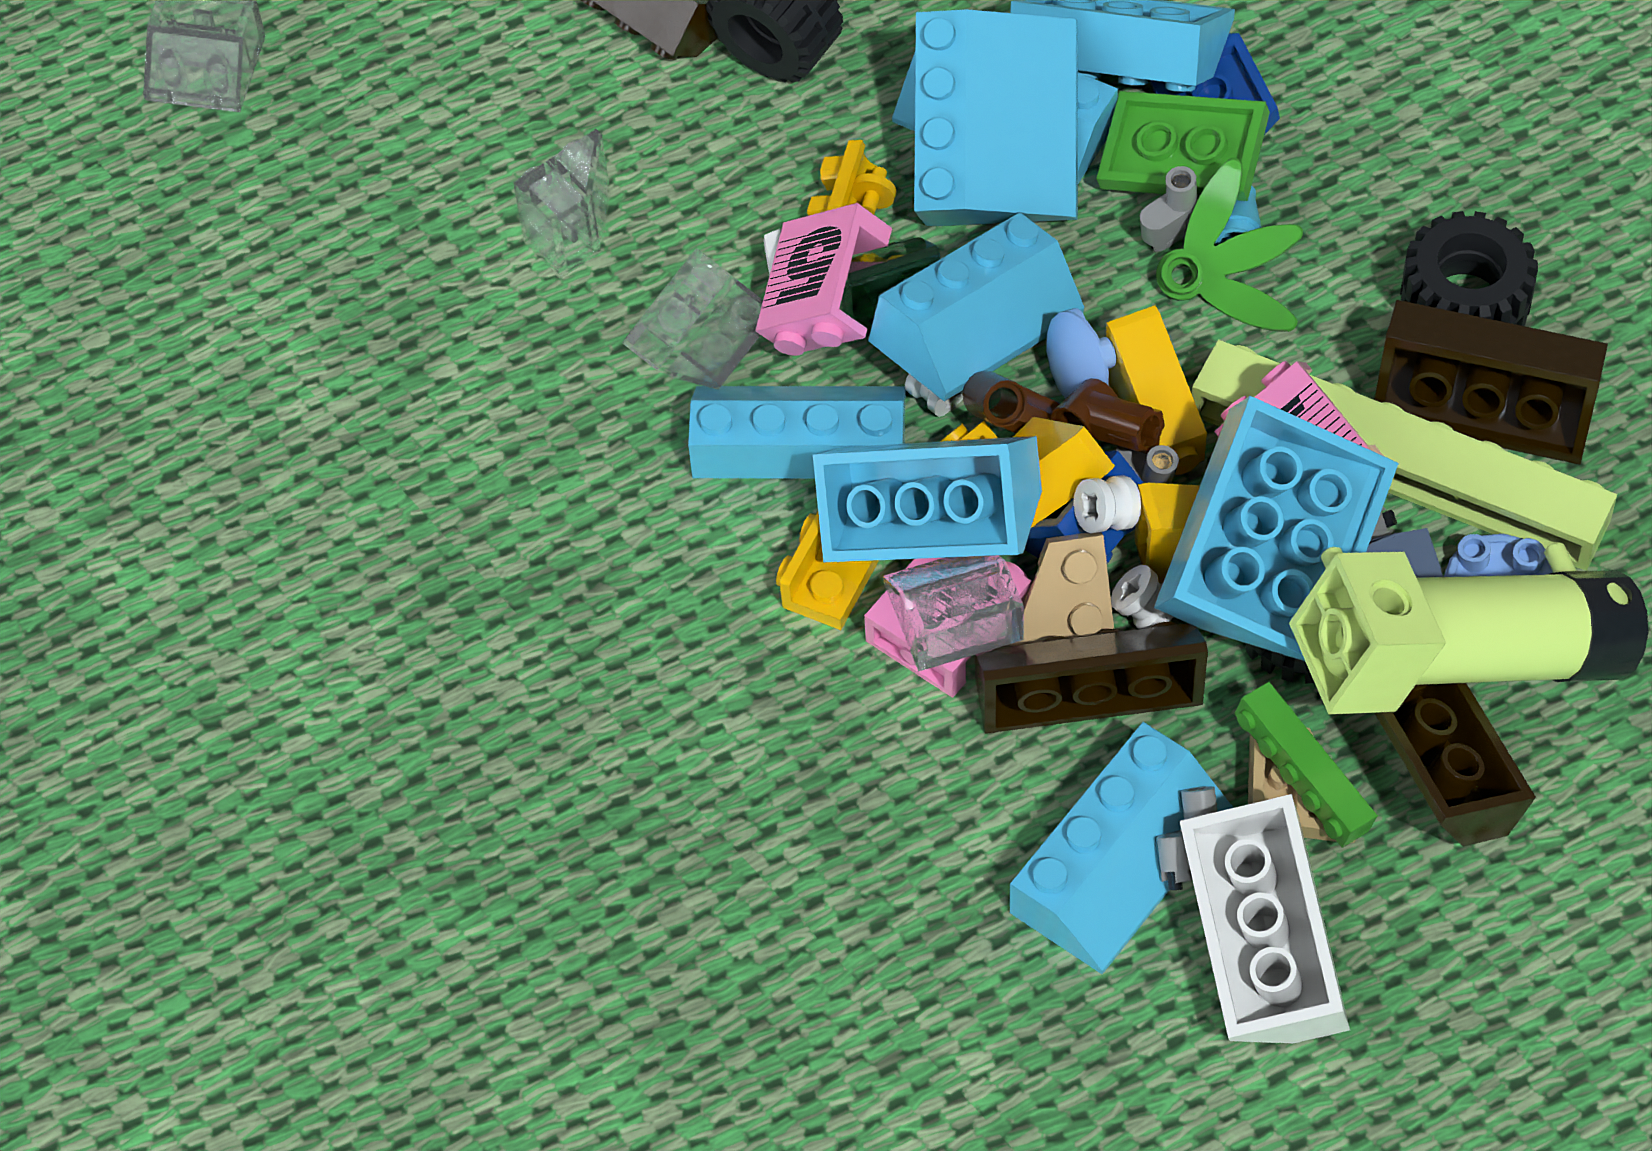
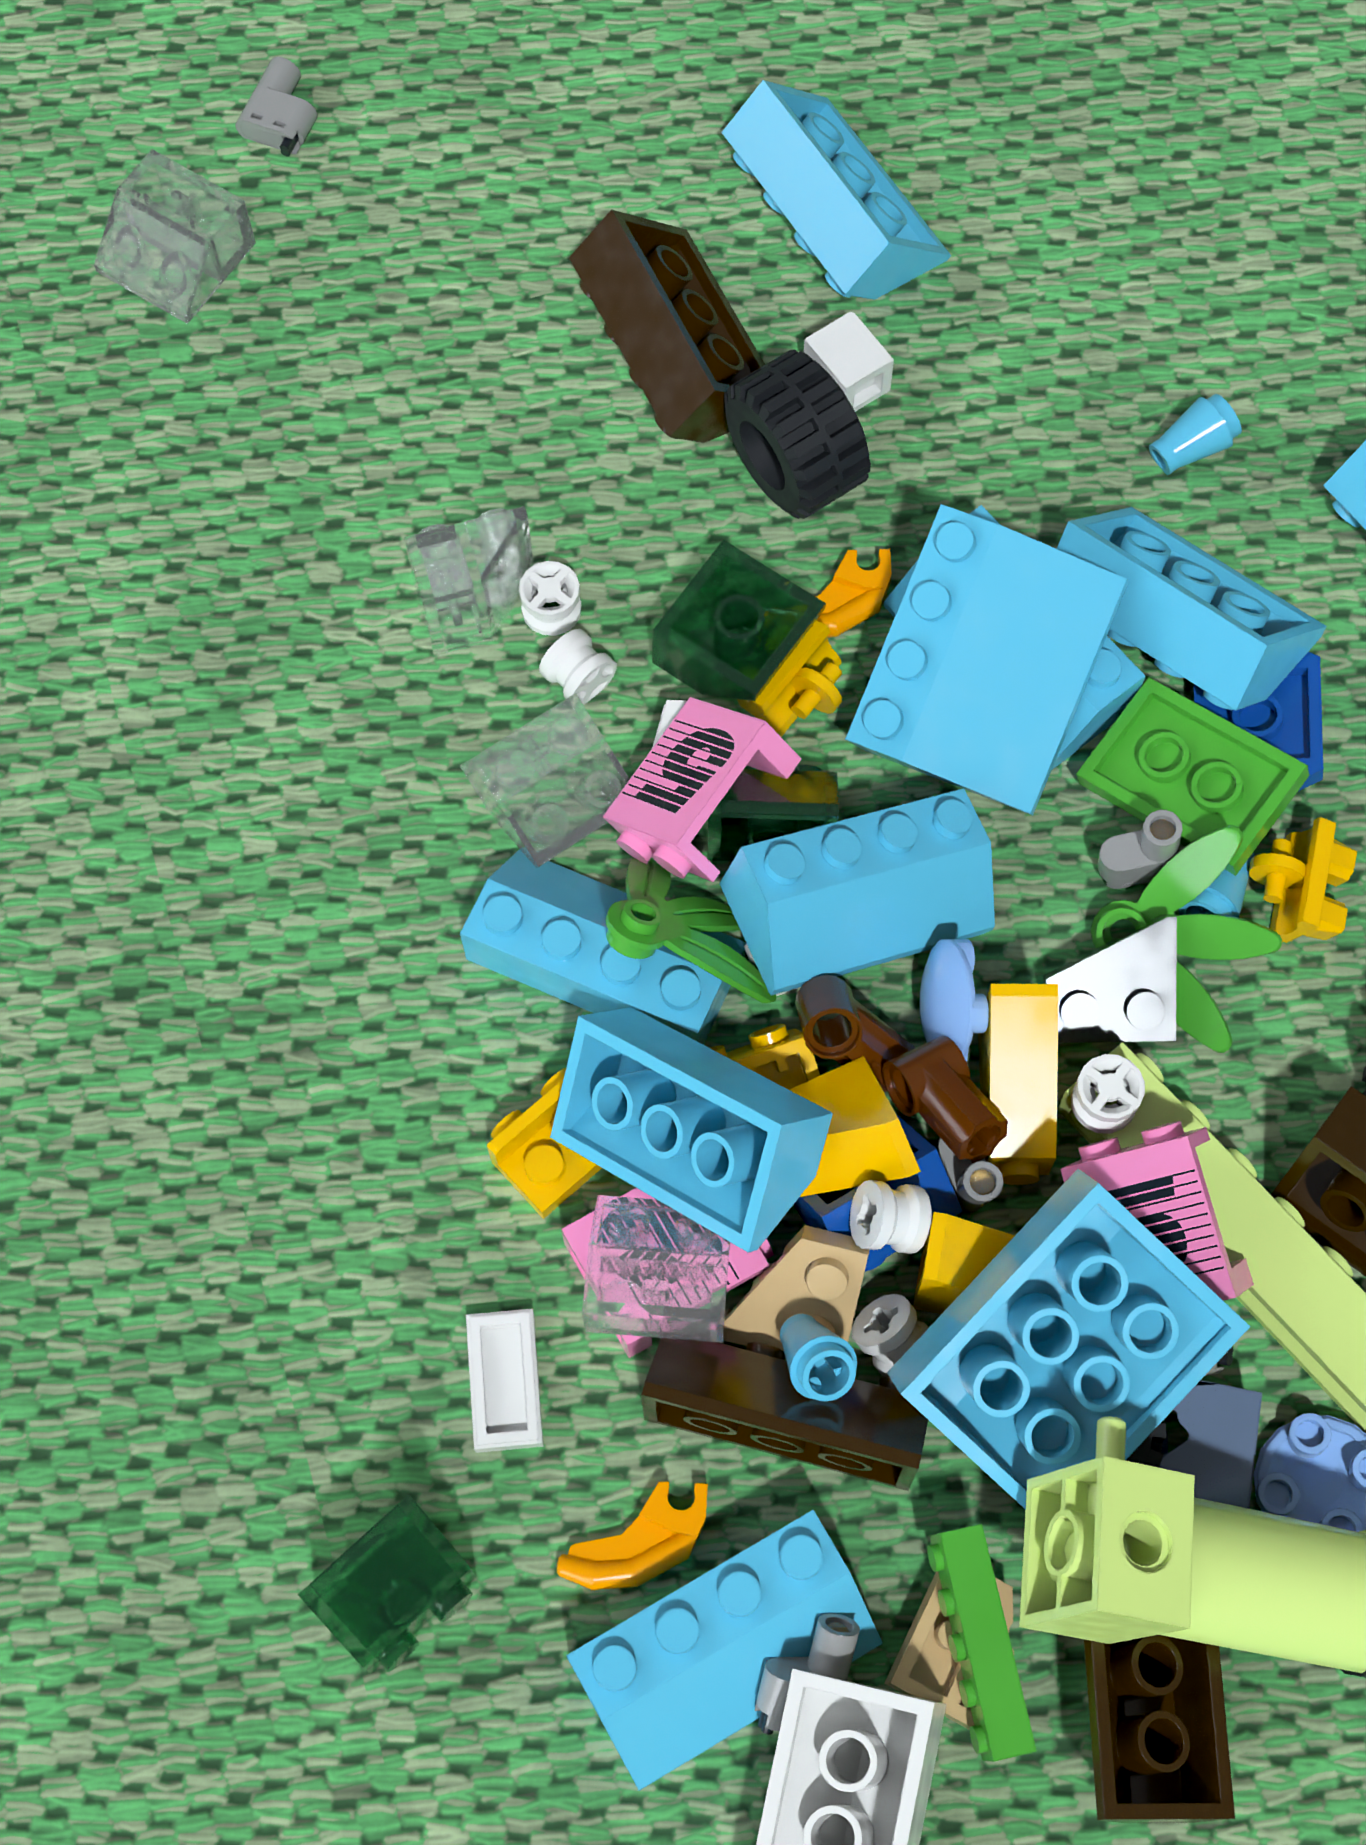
camera: 20 degrees right, 10 degrees up
(625, 193) = (550, 583): none -> white wheel
(677, 239) = (577, 666): none -> white wheel
(790, 166) = (733, 626): none -> clear green slope
(827, 384) = (650, 921): none -> bright green plant
(855, 897) = (390, 1587): none -> clear green slope
(863, 121) = (855, 592): none -> light orange piece
(867, 745) = (504, 1380): none -> white tile
(1030, 812) = (646, 1549): none -> light orange piece
(1099, 616) = (817, 1359): none -> medium azure cone
(1204, 306) = (1121, 988): none -> wing
(1217, 360) = (1114, 1080): none -> white wheel
(1293, 190) = (1297, 880): none -> yellow hips

